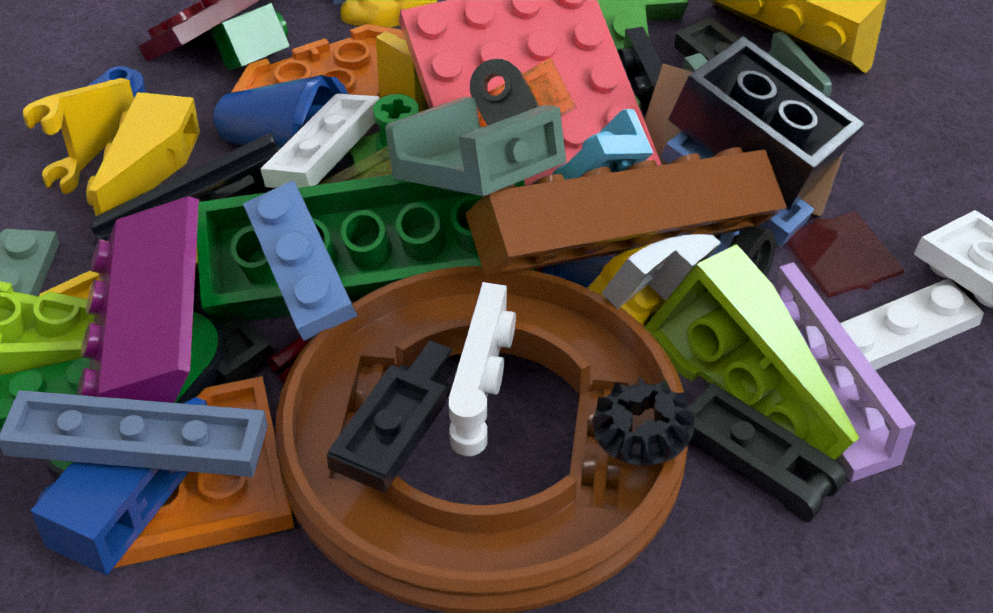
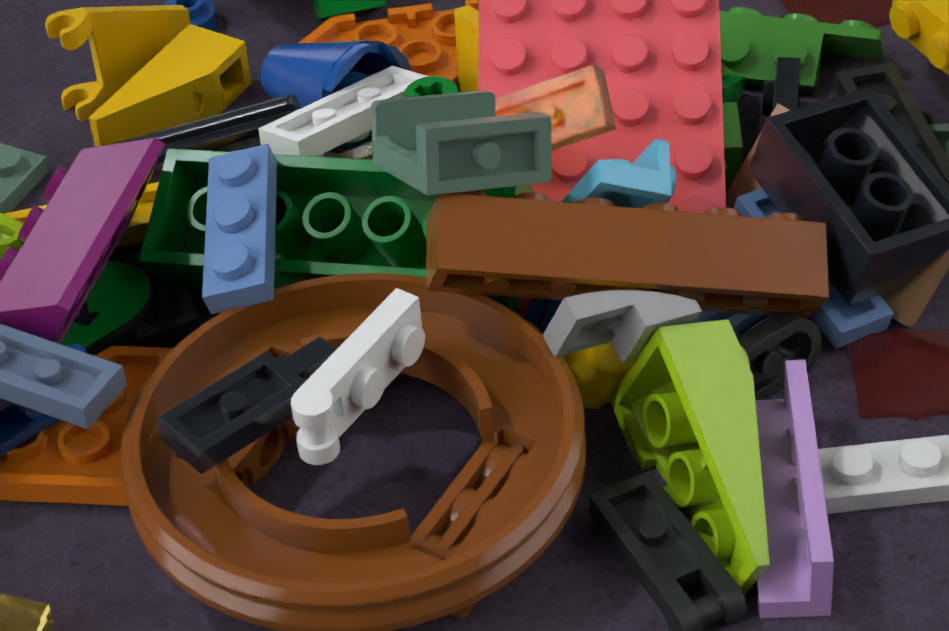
camera: 25 degrees right, 5 degrees down
(513, 100) = (541, 94): pearl dark grey plate -> none
(653, 440) = (498, 492): black gear -> none

